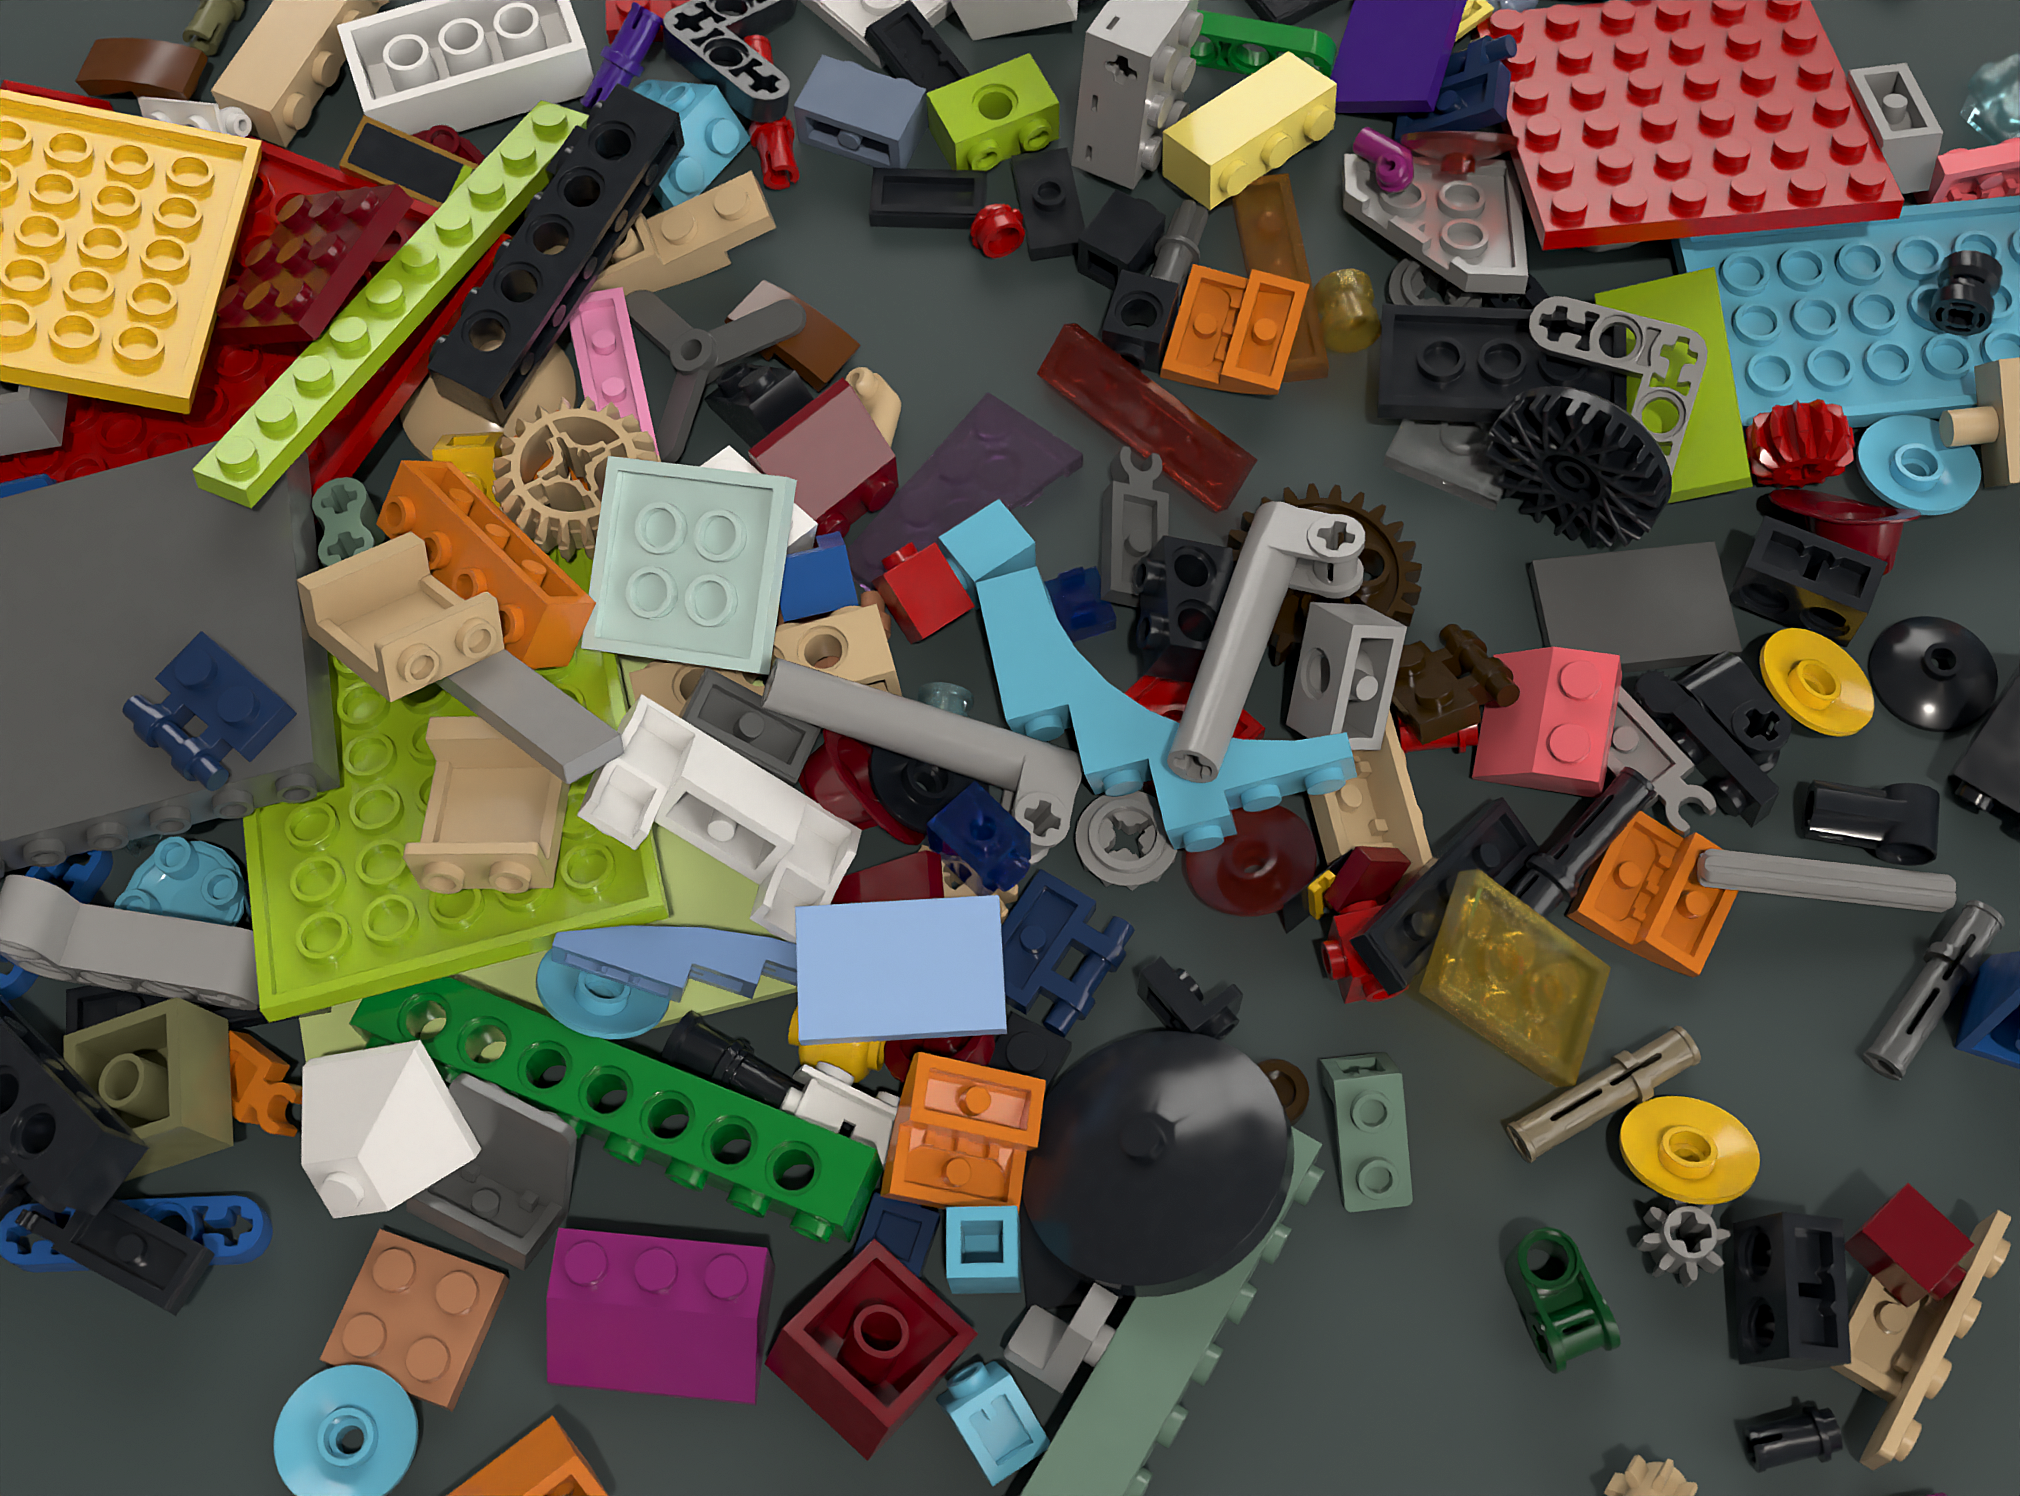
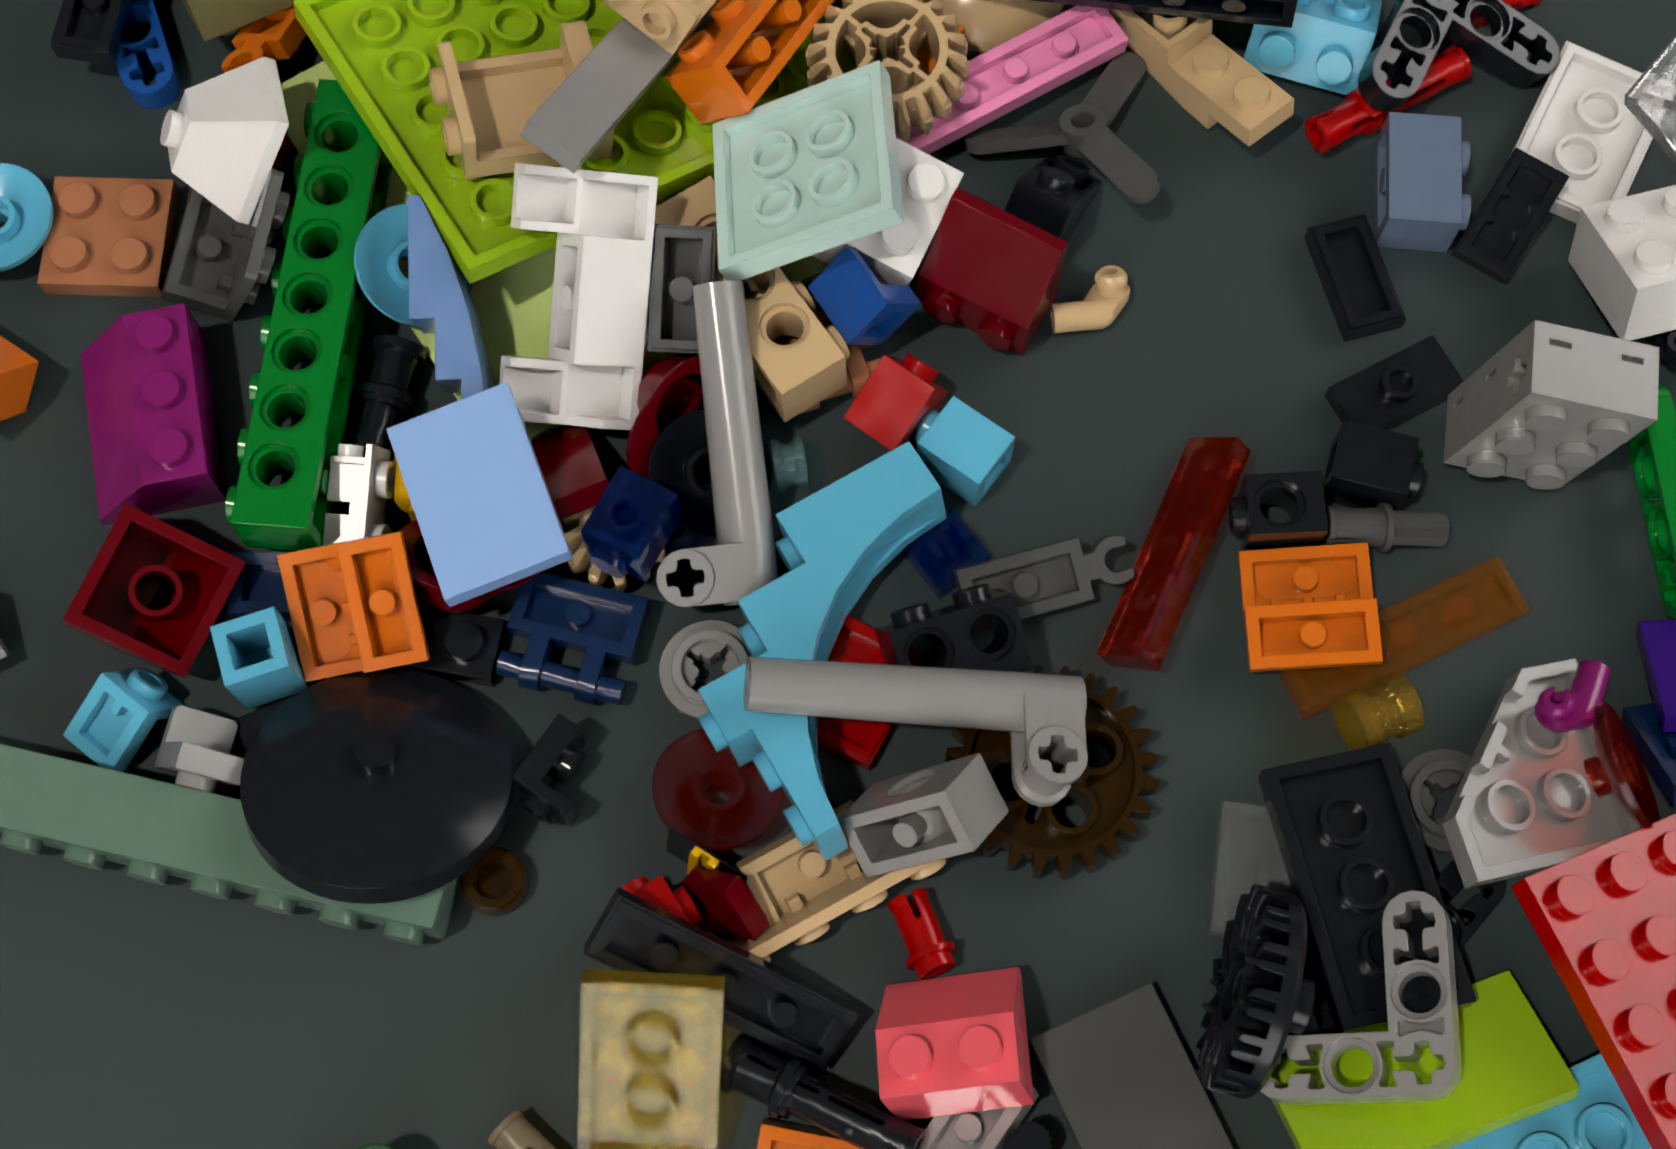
camera: 70 degrees right, 5 degrees up
(814, 352) = (1138, 230): reddish brown slope -> none
(983, 460) = (1059, 420): clear purple wing -> none
(993, 115) = (1467, 272): lime brick -> none
(997, 230) = (1339, 349): red plate -> none
(1249, 130) = (1558, 552): light yellow brick -> none
(1369, 1130) = (477, 969): sand green bracket -> none
(1433, 699) = (950, 905): dark brown plate -> none

